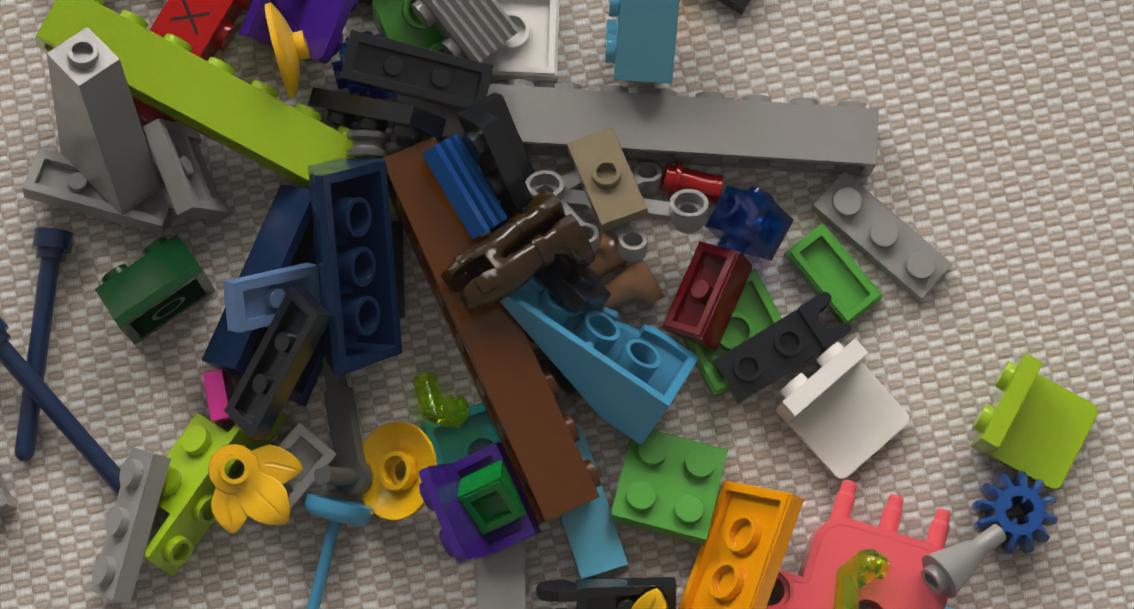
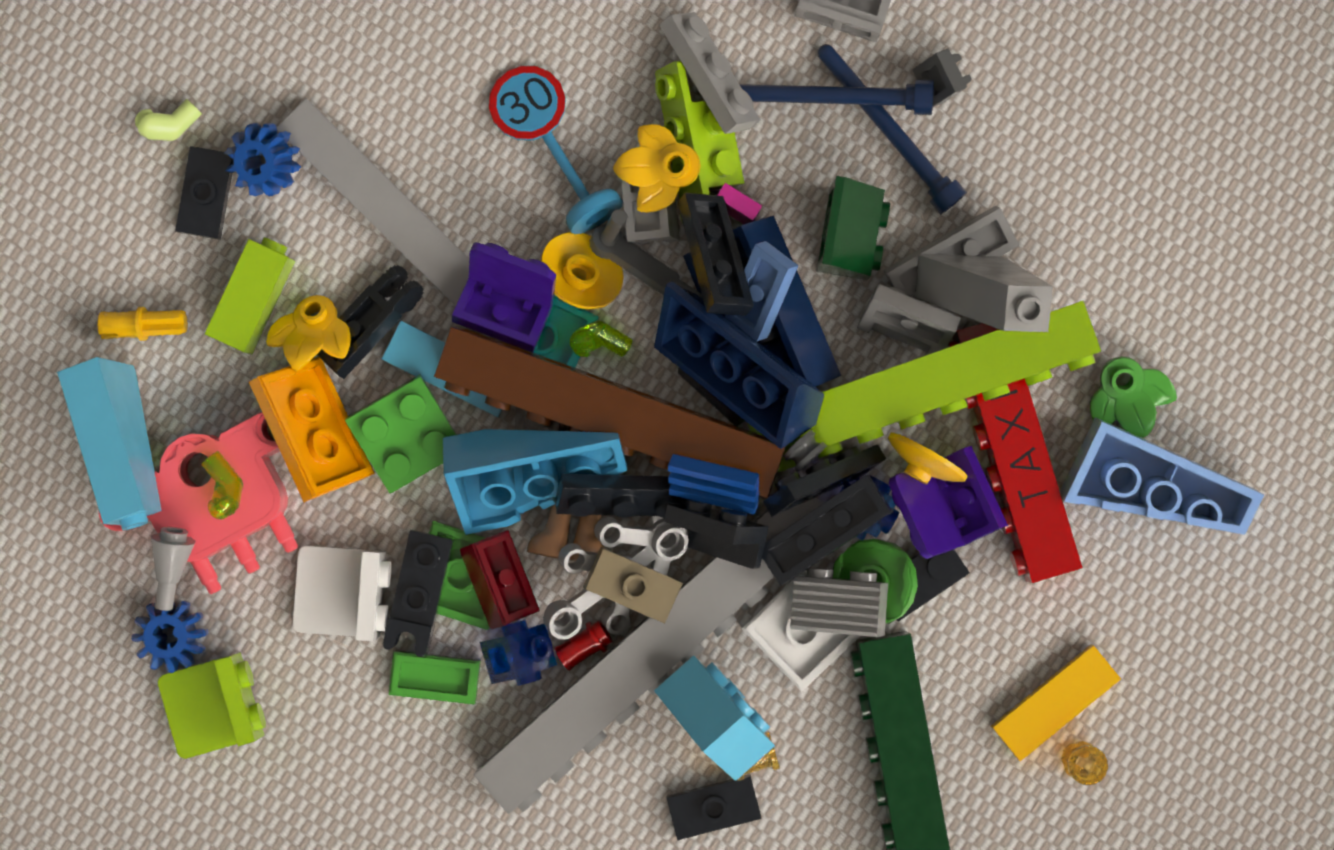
camera: 145 degrees right, 10 degrees up
(490, 275) = (625, 452): dark brown piece -> none
(490, 497) = (502, 309): green slope -> none
(881, 236) = (428, 735): light grey plate -> none

